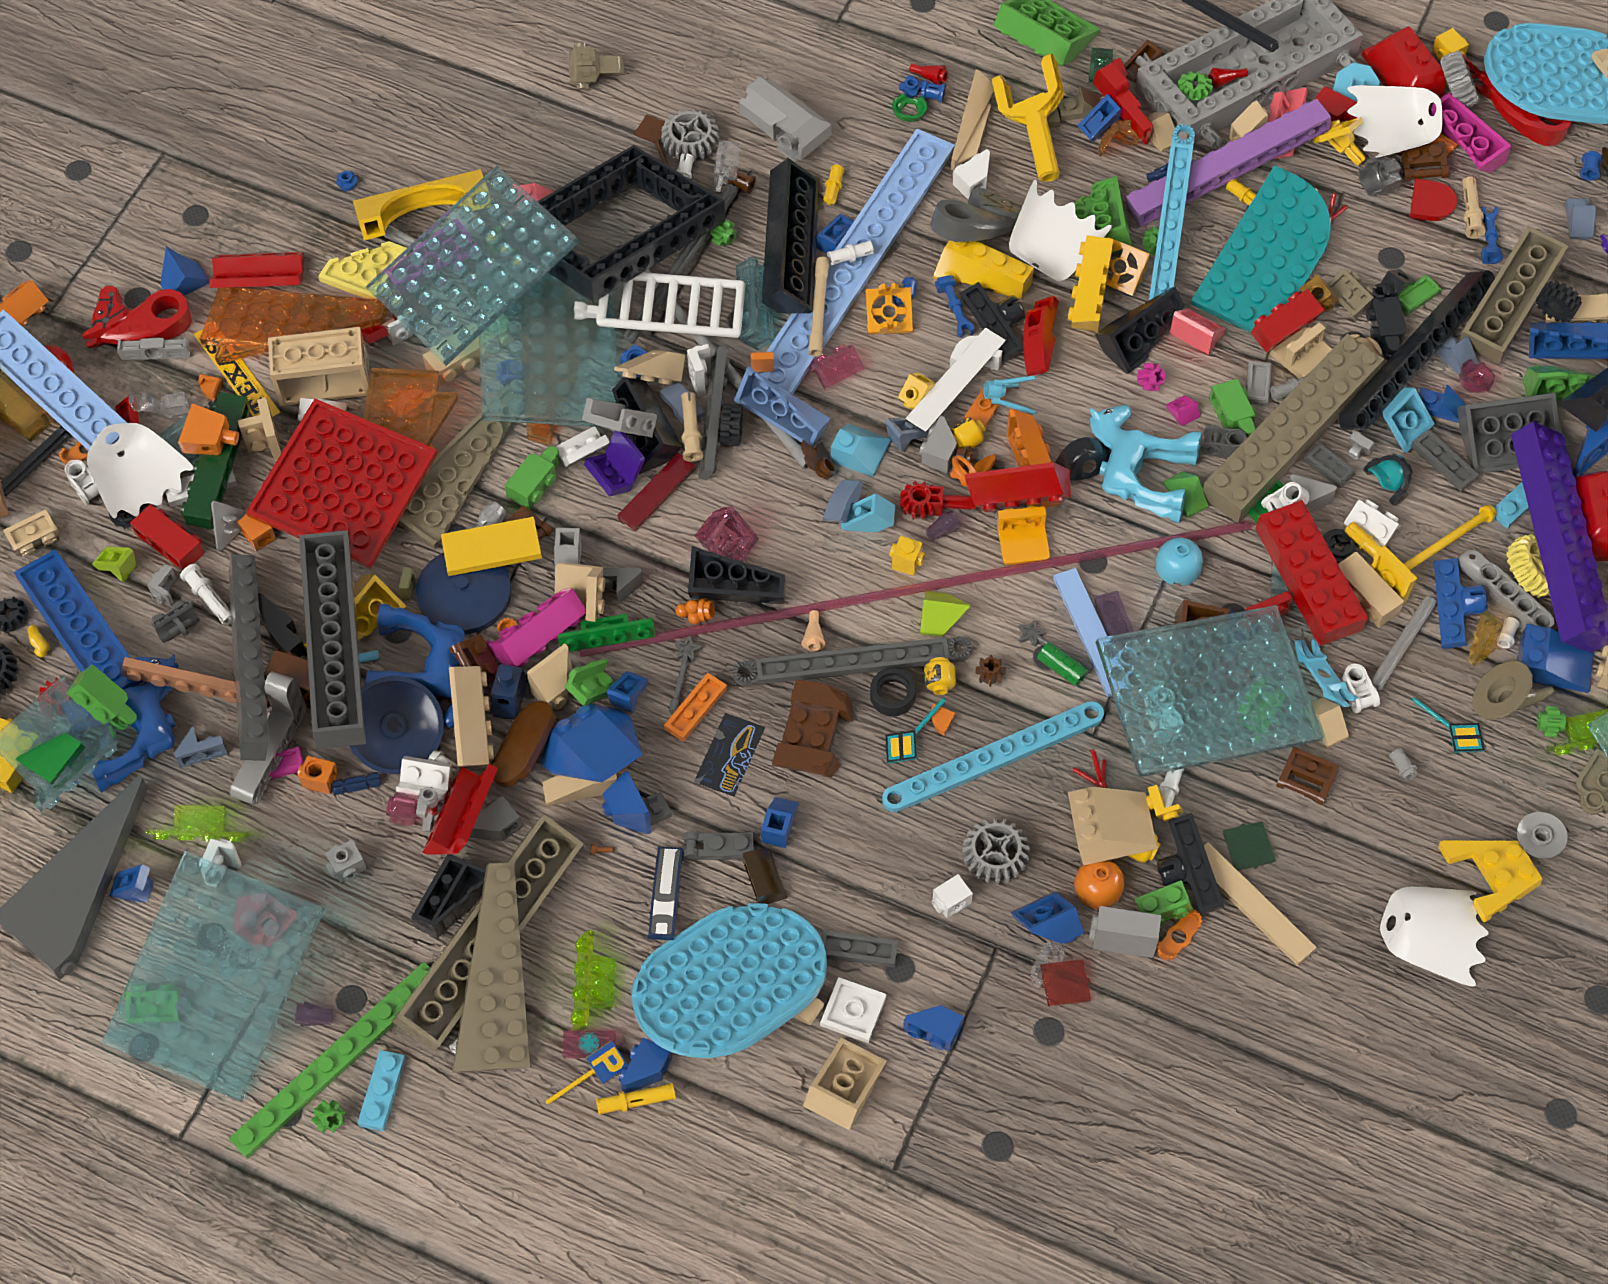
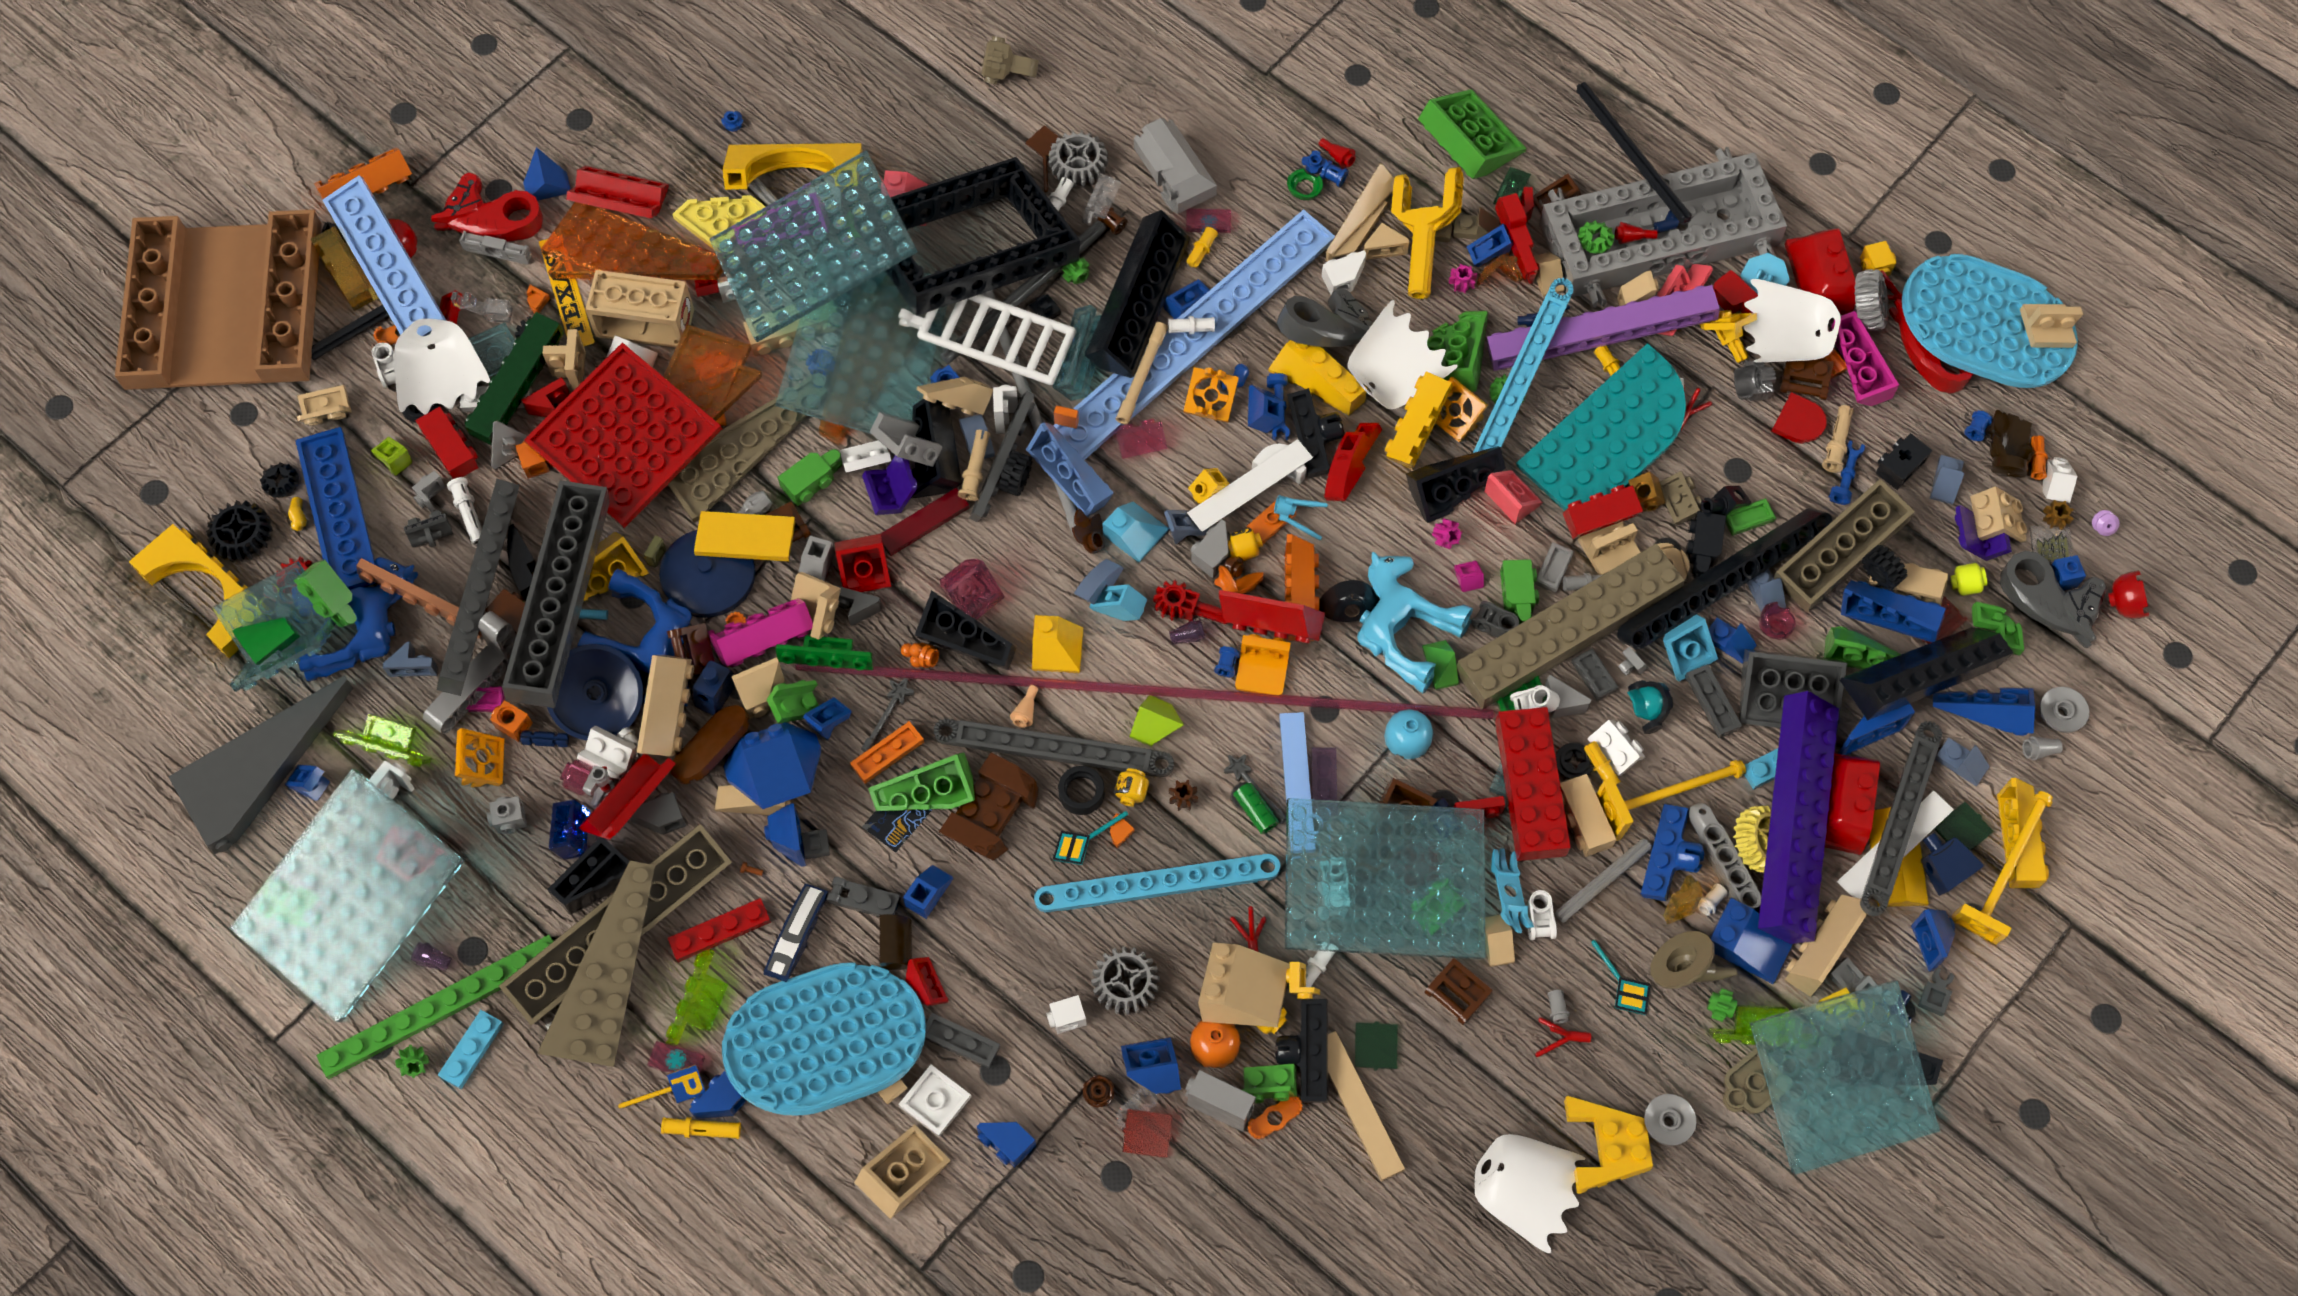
camera: 15 degrees right, 5 degrees up
(206, 432) = (508, 350): orange torso -> none
(249, 476) = (542, 401): none -> red slope
(286, 806) = (479, 740): none -> light orange piece
(411, 864) = (565, 836): none -> clear blue brick
(588, 912) = (719, 930): none -> red plate
(613, 542) = (862, 563): none -> red slope
(705, 270) = (1045, 307): none -> black tile
(749, 726) = (934, 786): none -> bright green wedge
(805, 904) = (925, 982): none -> red slope
(822, 161) = (1217, 219): none -> clear pink tile
(822, 568) = (1056, 645): none -> yellow slope
(907, 555) = (1141, 654): yellow brick -> none
(944, 311) = (1264, 409): none -> blue slope
(988, 539) = (1227, 661): none -> blue bush
(1004, 139) = (1386, 243): none -> tan slope
(1006, 950) = (1098, 1083): none -> reddish brown plate
(1084, 153) = (1462, 278): none -> dark pink gear
(1255, 58) = (1669, 223): none -> dark blue arm
(1422, 787) = (1568, 1036): none -> red plant
(1537, 209) = (1903, 461): none -> black brick

